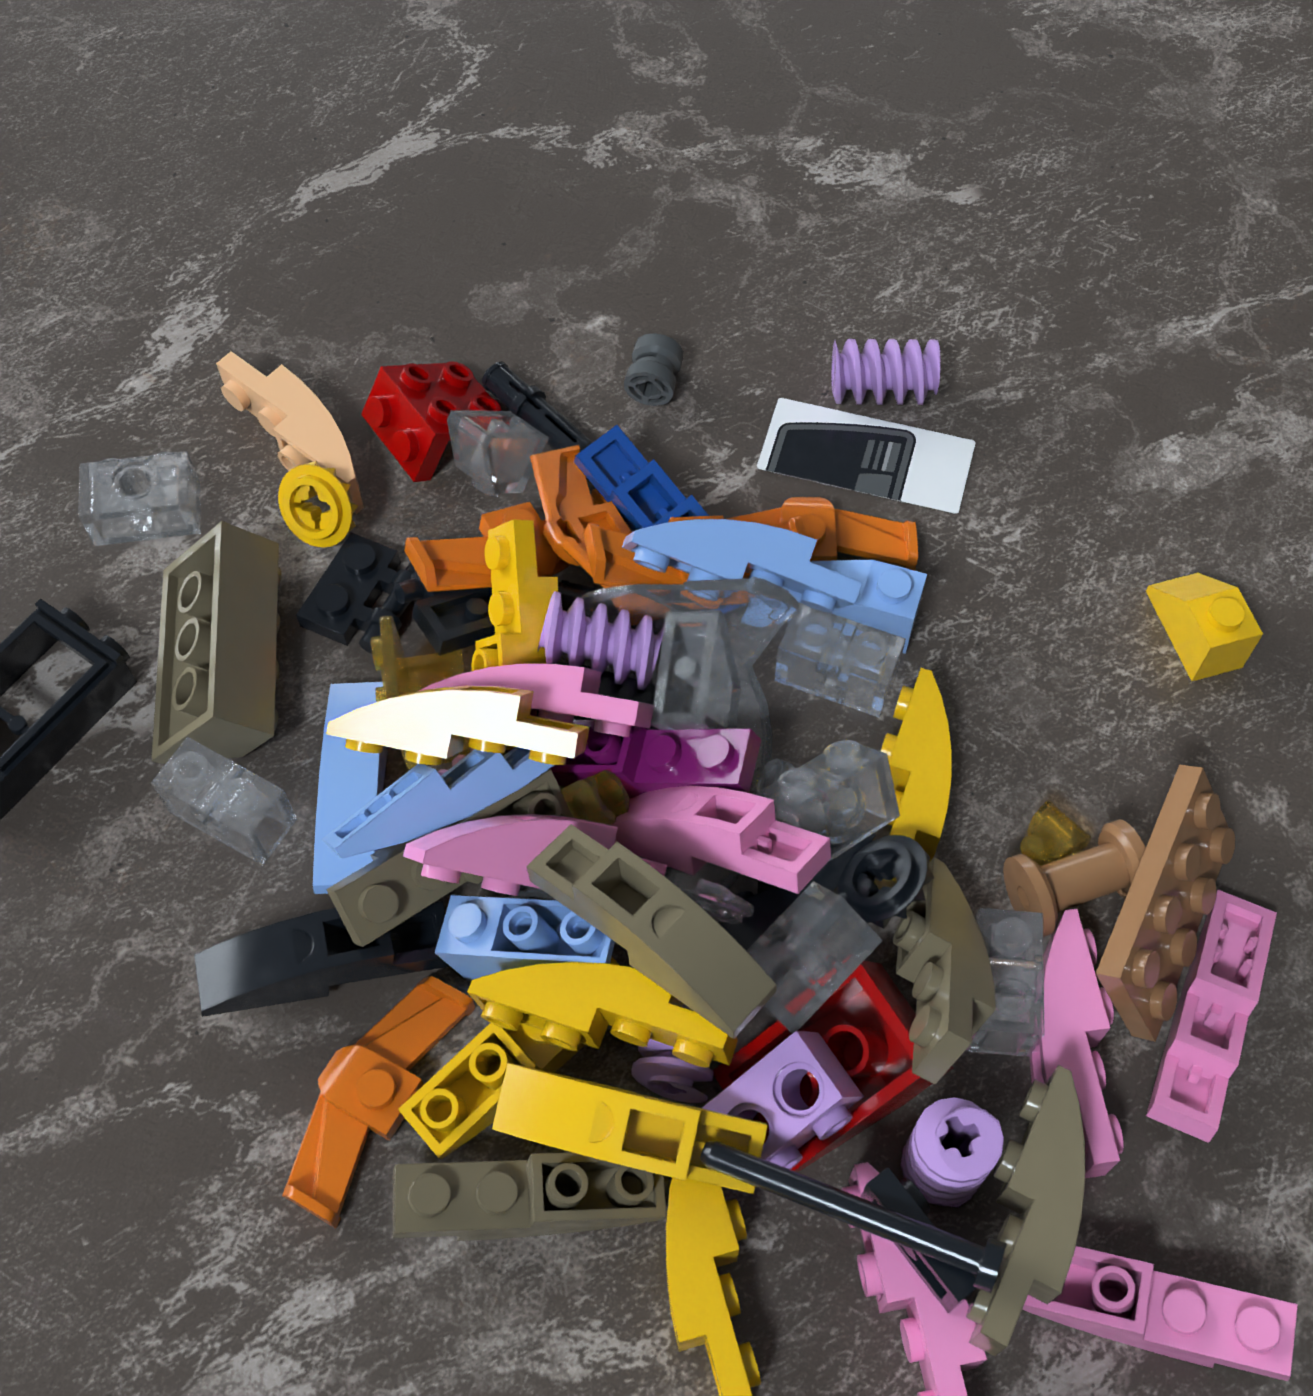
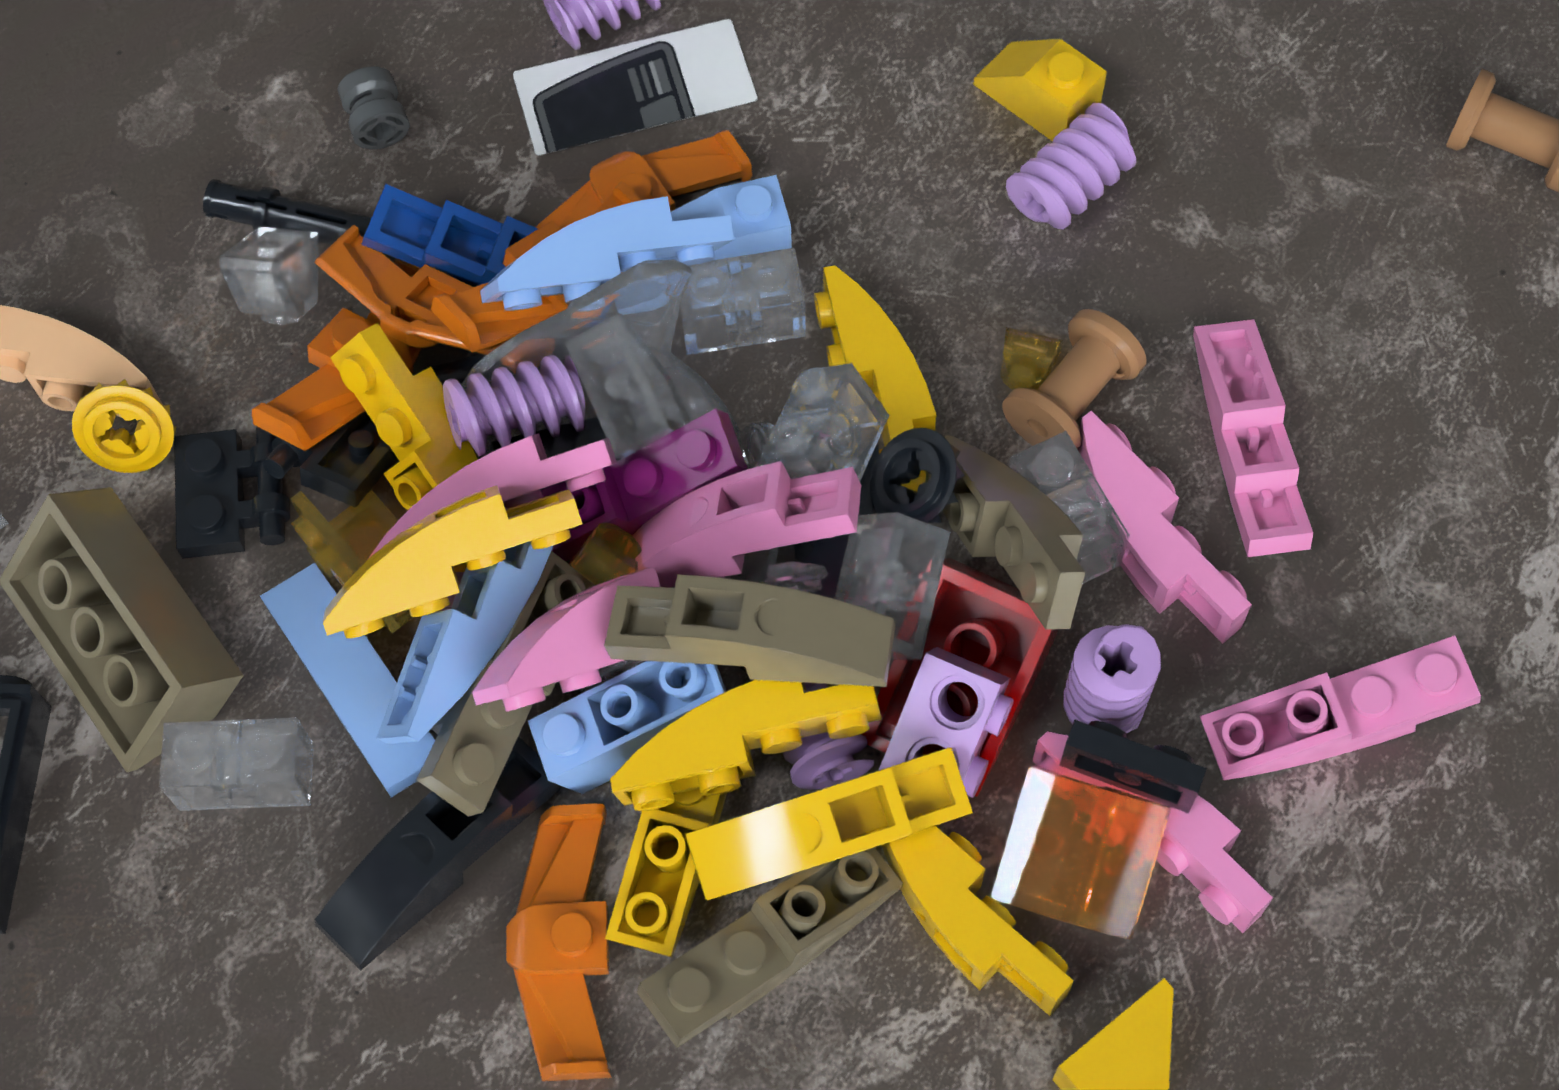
camera: 30 degrees left, 5 degrees up
(412, 408) = (166, 274): red bracket -> none
(830, 1294) = (1080, 852): none -> clear orange slope
(858, 1212) = (1198, 747): black bar -> none
(1046, 1188) = (1211, 663): dark tan slope -> none
(1166, 904) = (1163, 363): medium nougat plate -> none
(1188, 699) = (1073, 168): none -> lavender piece

